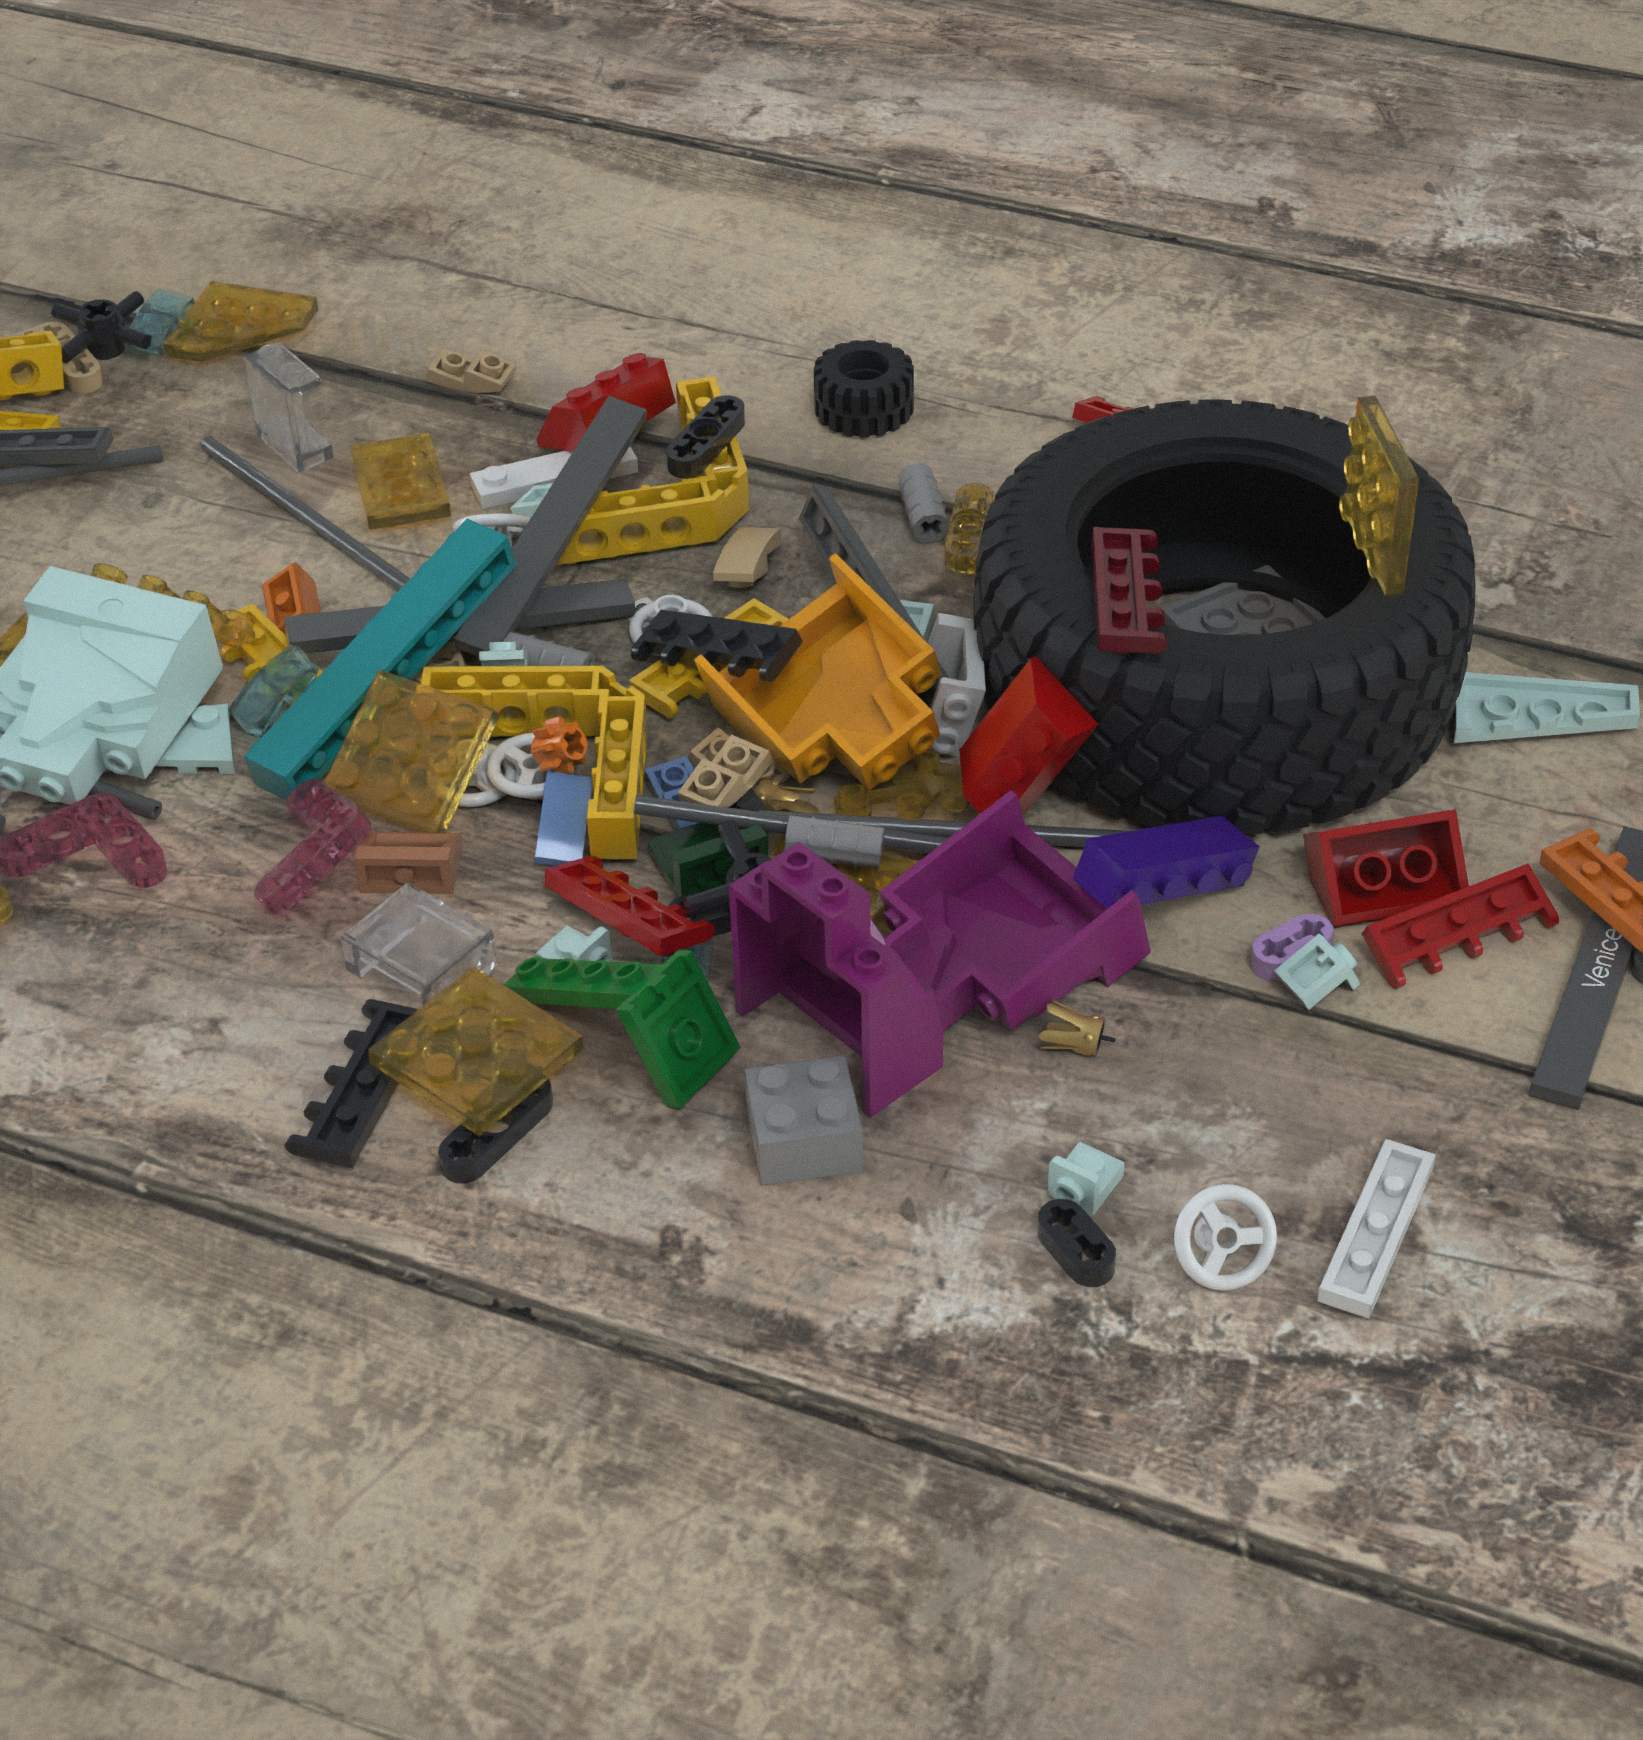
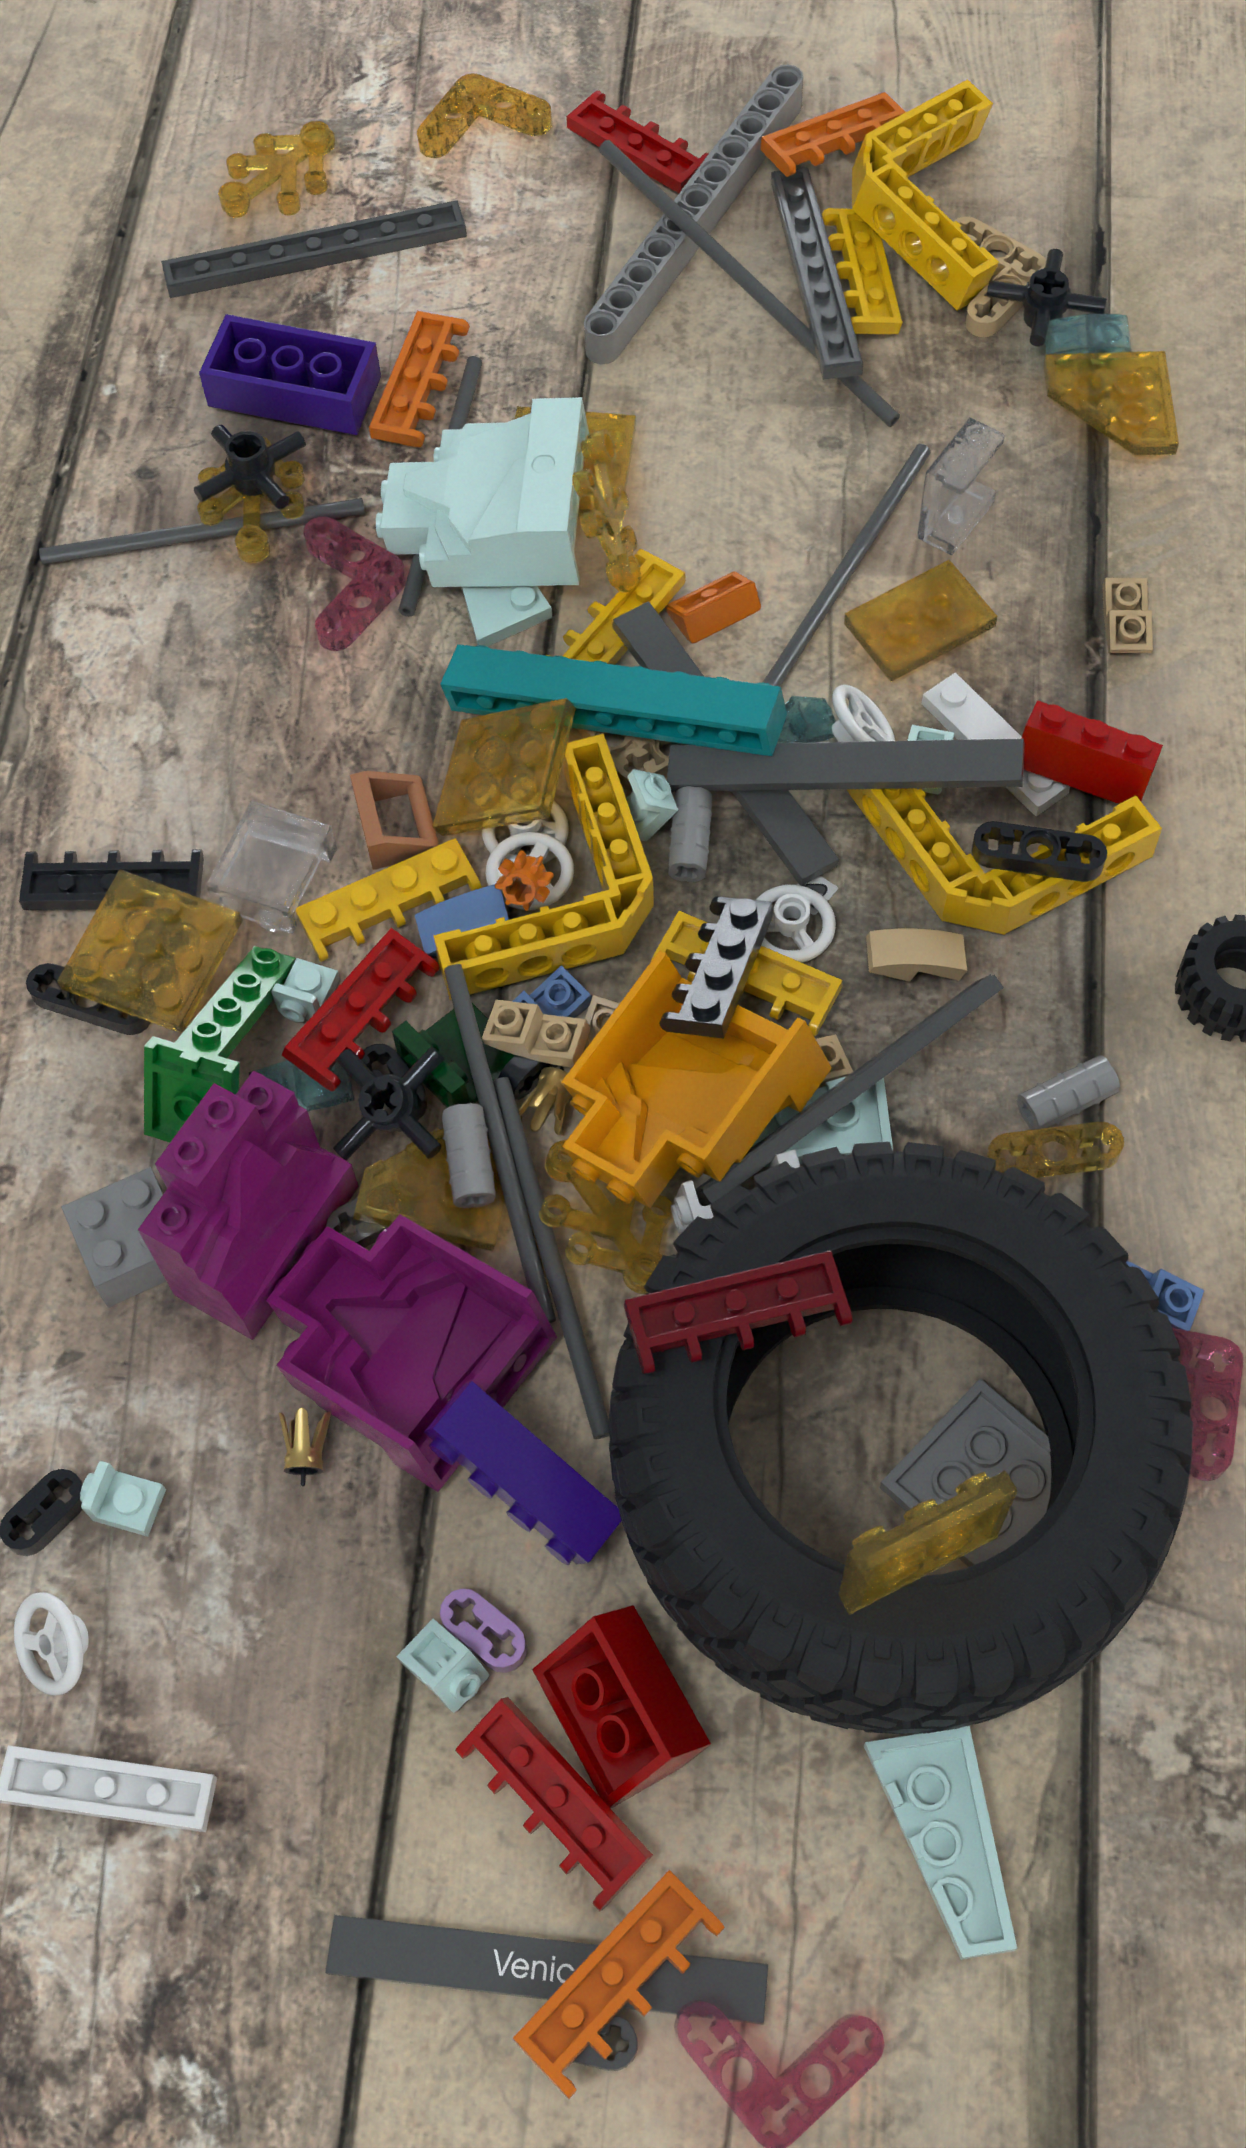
camera: 75 degrees right, 20 degrees up
(277, 682) = (560, 633): clear light blue slope -> none
(336, 831) = (386, 749): clear pink beam -> none
(495, 882) = (385, 896): none -> yellow hinge
(1023, 740) = (596, 1282): red slope -> none

